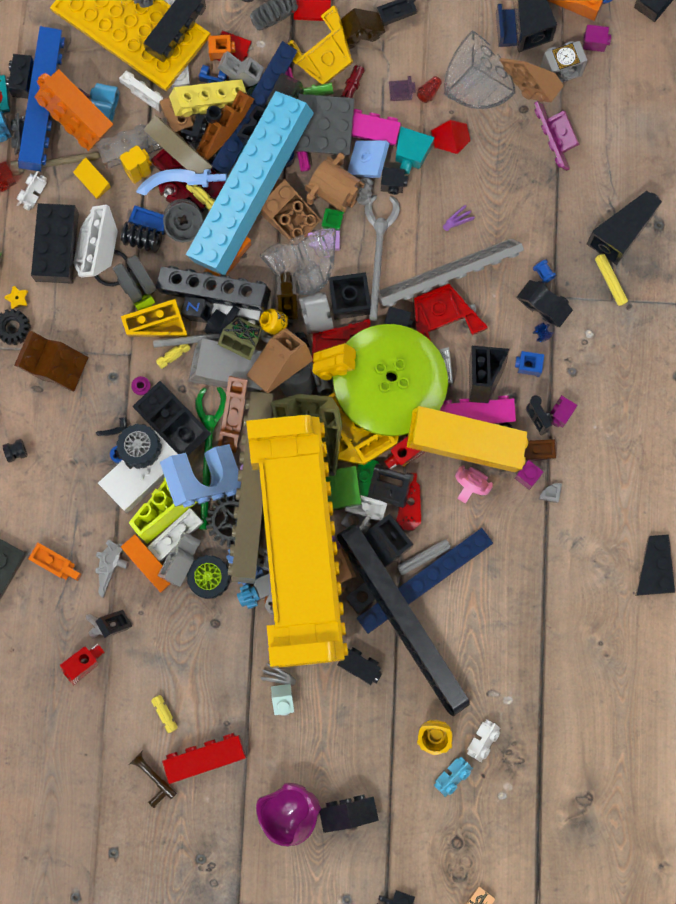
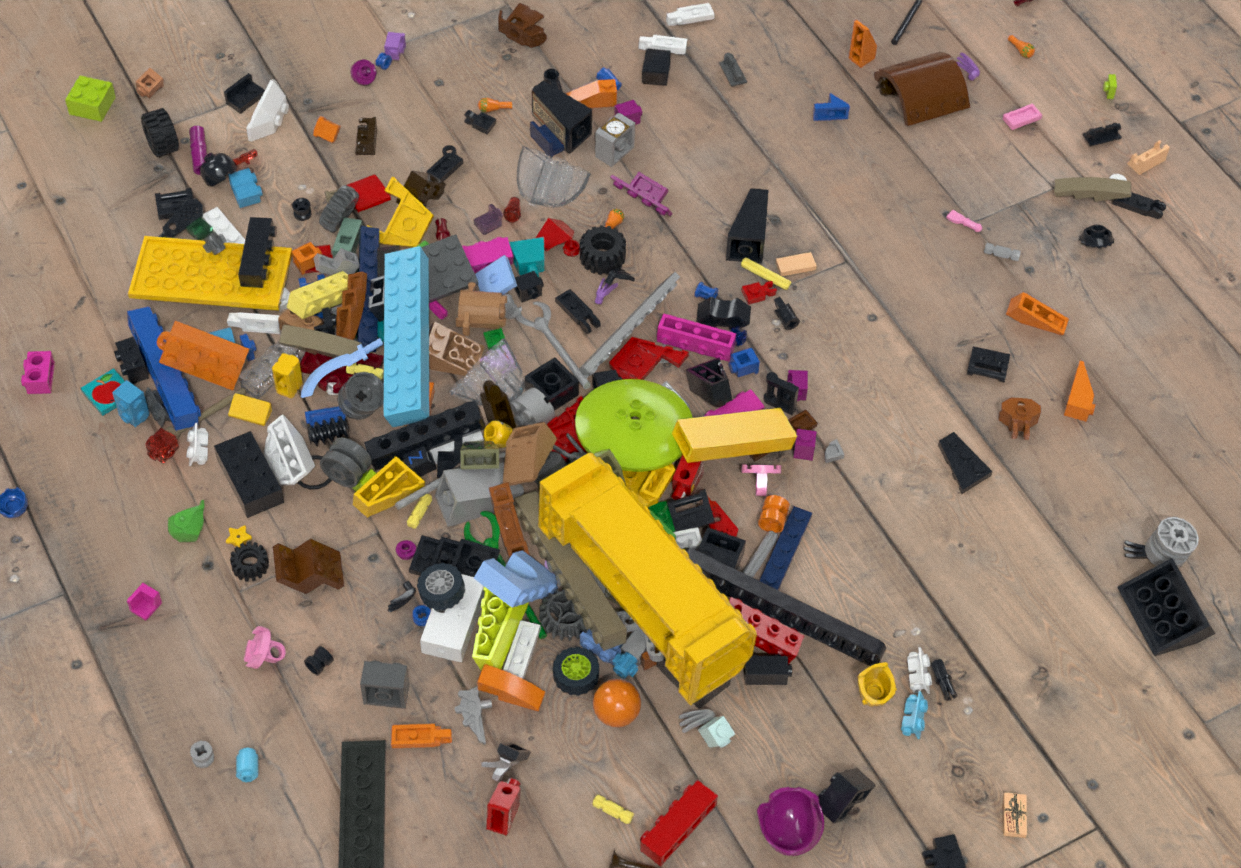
camera: 35 degrees left, 25 degrees down
(45, 502) = (384, 684): none -> dark grey brick
(123, 114) = (245, 342): none -> blue plate
(179, 560) = (540, 668): light grey piece -> none
(213, 114) = (337, 301): black piece -> none
(217, 630) = (617, 703): none -> orange piece
(266, 45) = (347, 236): none -> sand green brick
(334, 361) = (577, 428): yellow brick -> none
(373, 632) = (771, 634): none -> brick
(421, 226) = (577, 310): none -> black hinge
(456, 164) = (571, 248): none -> red plate
(458, 527) = (774, 513): none -> orange wheel
(478, 212) = (618, 273): none -> black piece
(484, 164) = (605, 239): none -> black tyre
(498, 759) = (943, 679): none -> black axle
(503, 315) = (696, 337): none -> dark pink brick
(512, 148) = (614, 218): none -> orange piece
(532, 80) = (597, 156): medium nougat slope -> none
(589, 294) = (756, 293): none -> red plate
(600, 332) = (786, 314): none -> black hinge
(645, 284) = (795, 264): none -> light nougat tile

